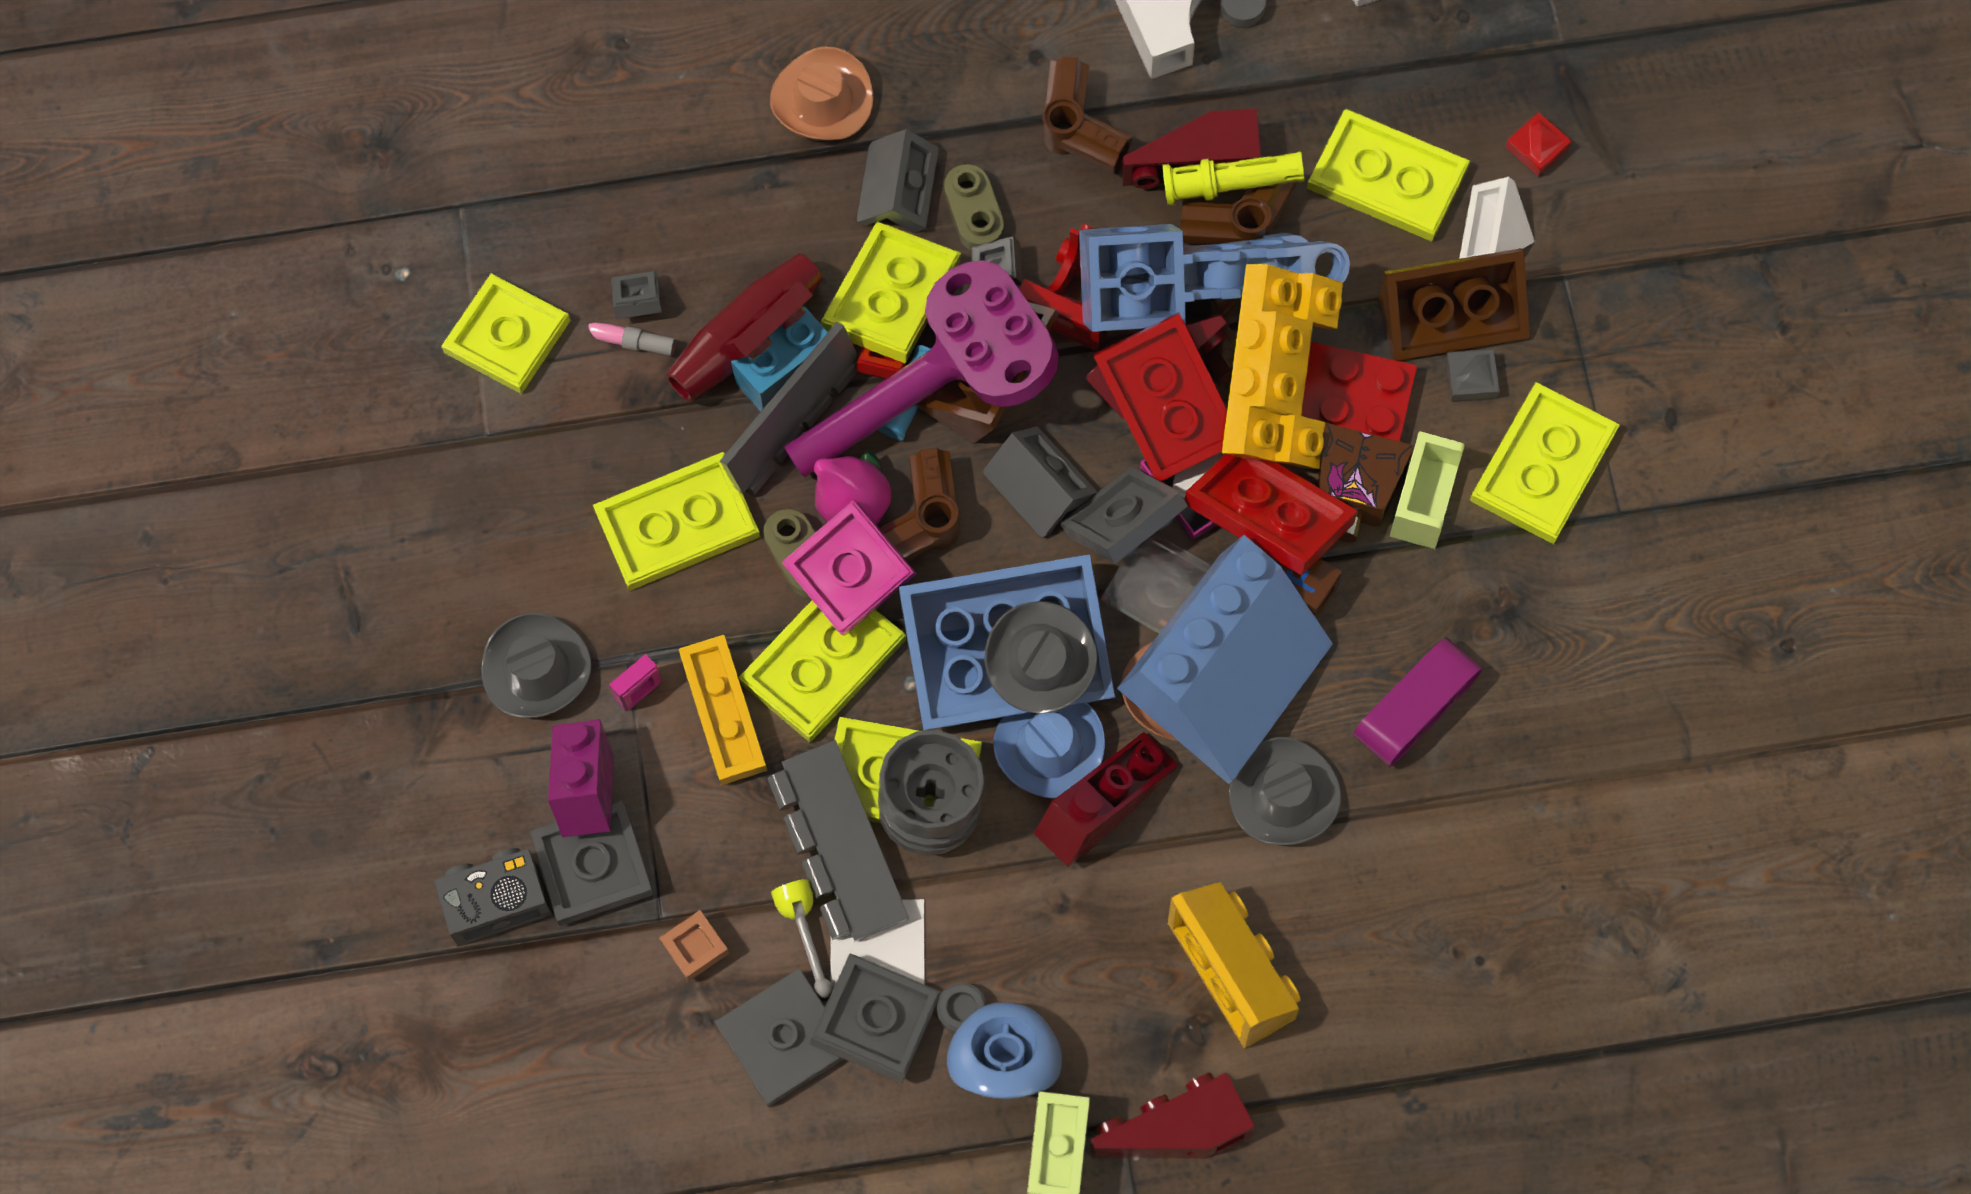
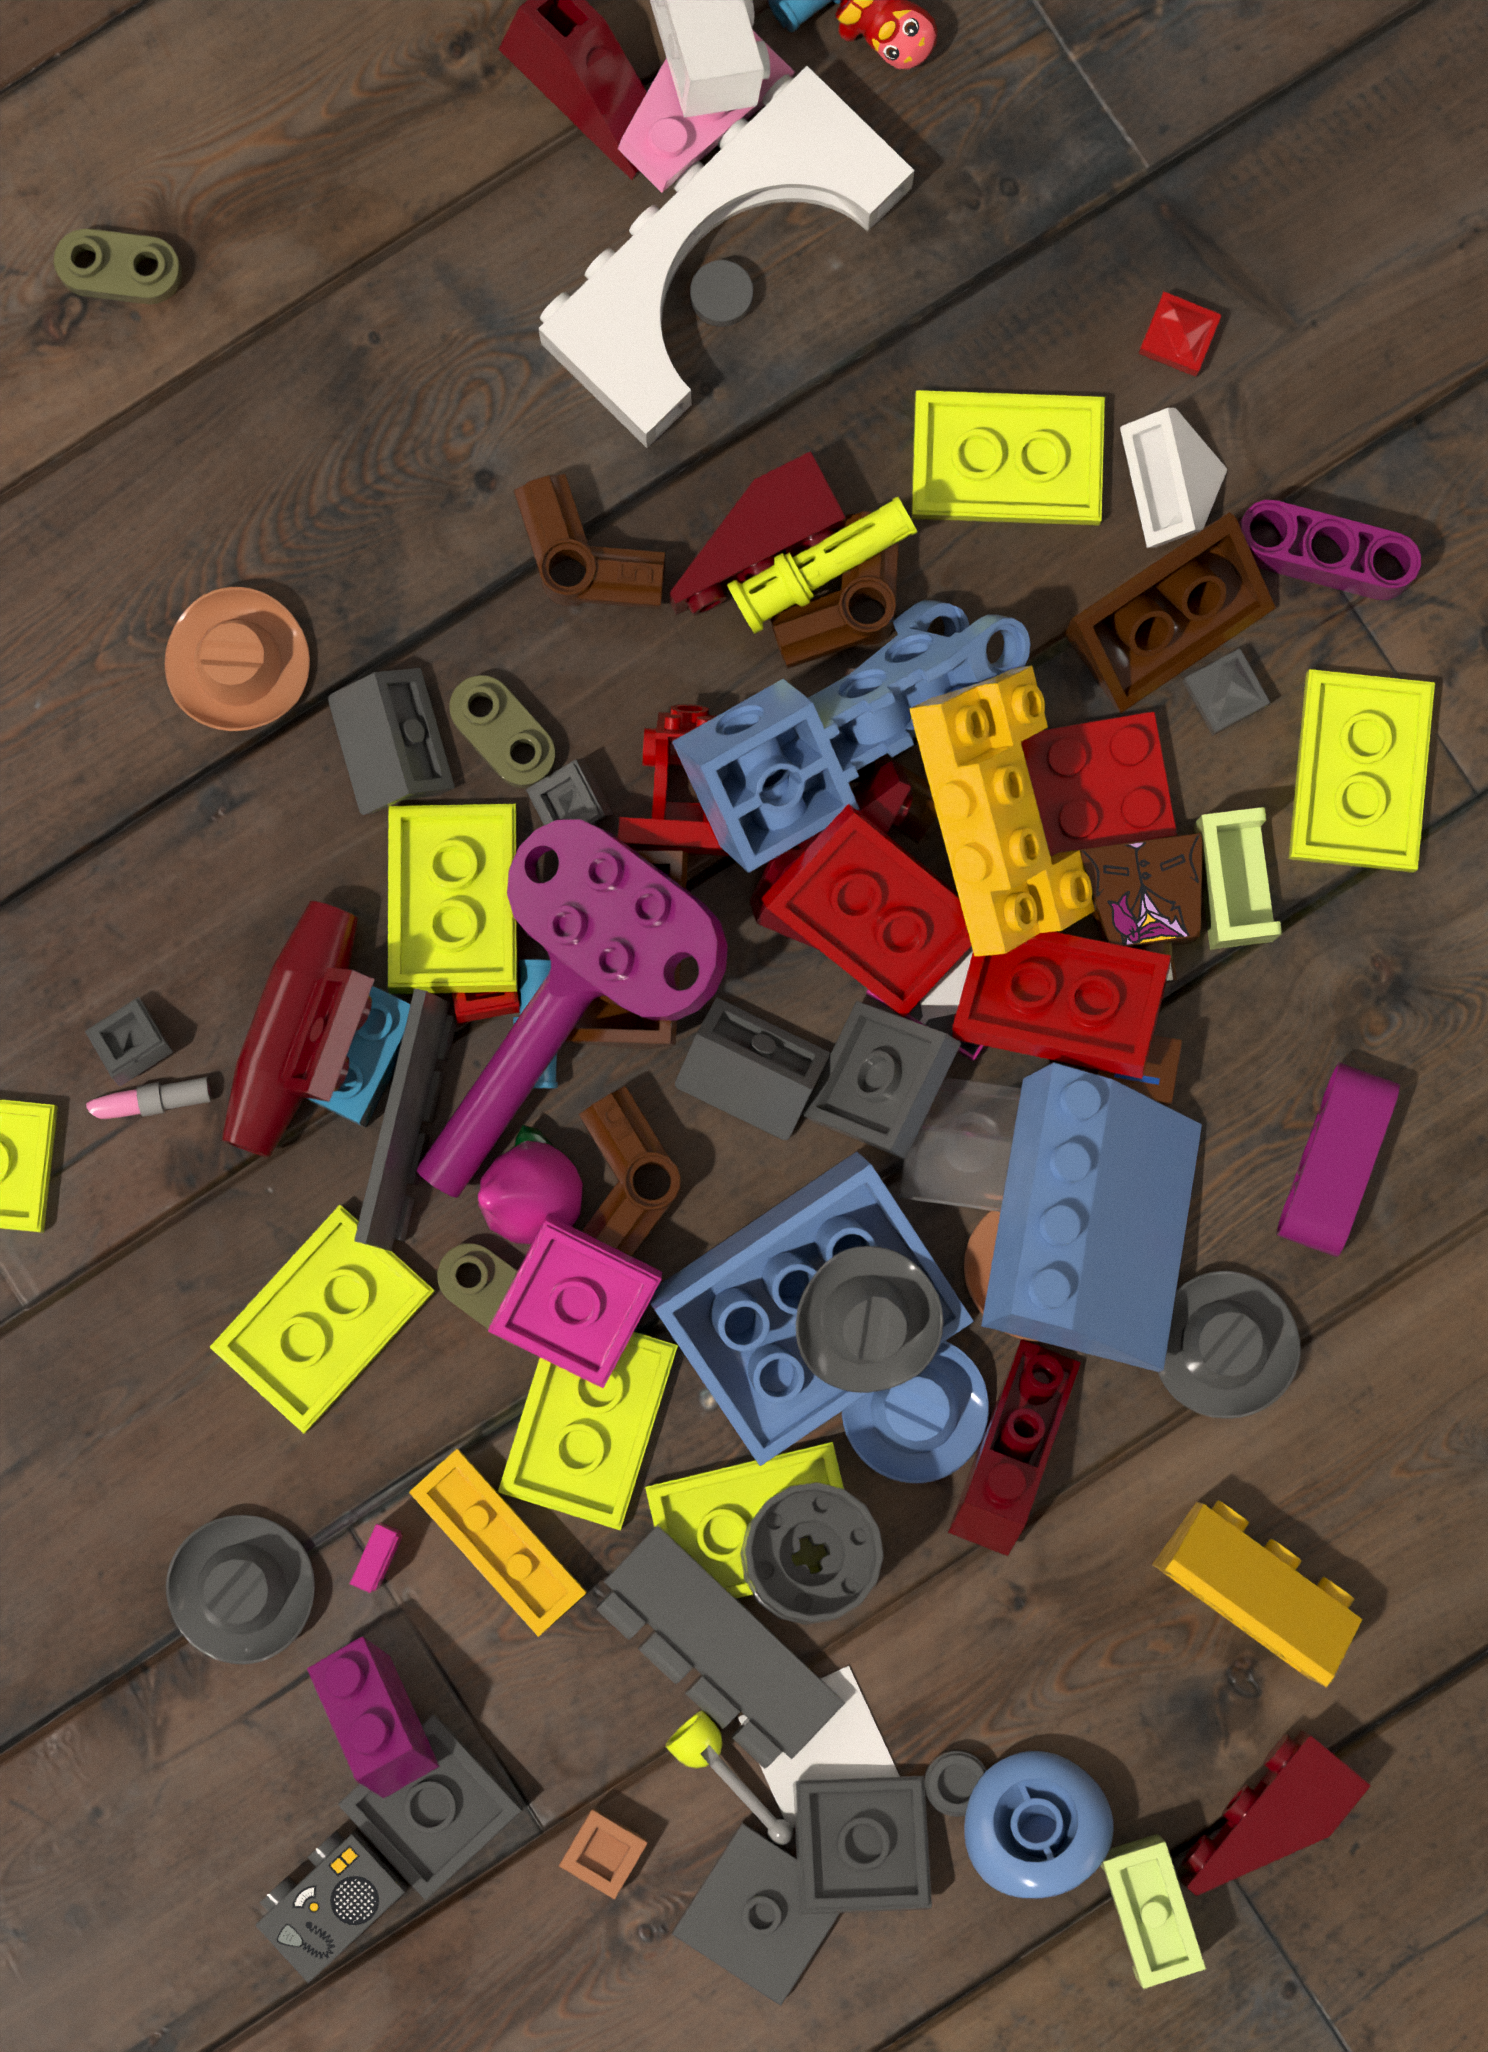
camera: 30 degrees left, 15 degrees up
(1588, 330) = (1356, 541): none -> magenta beam

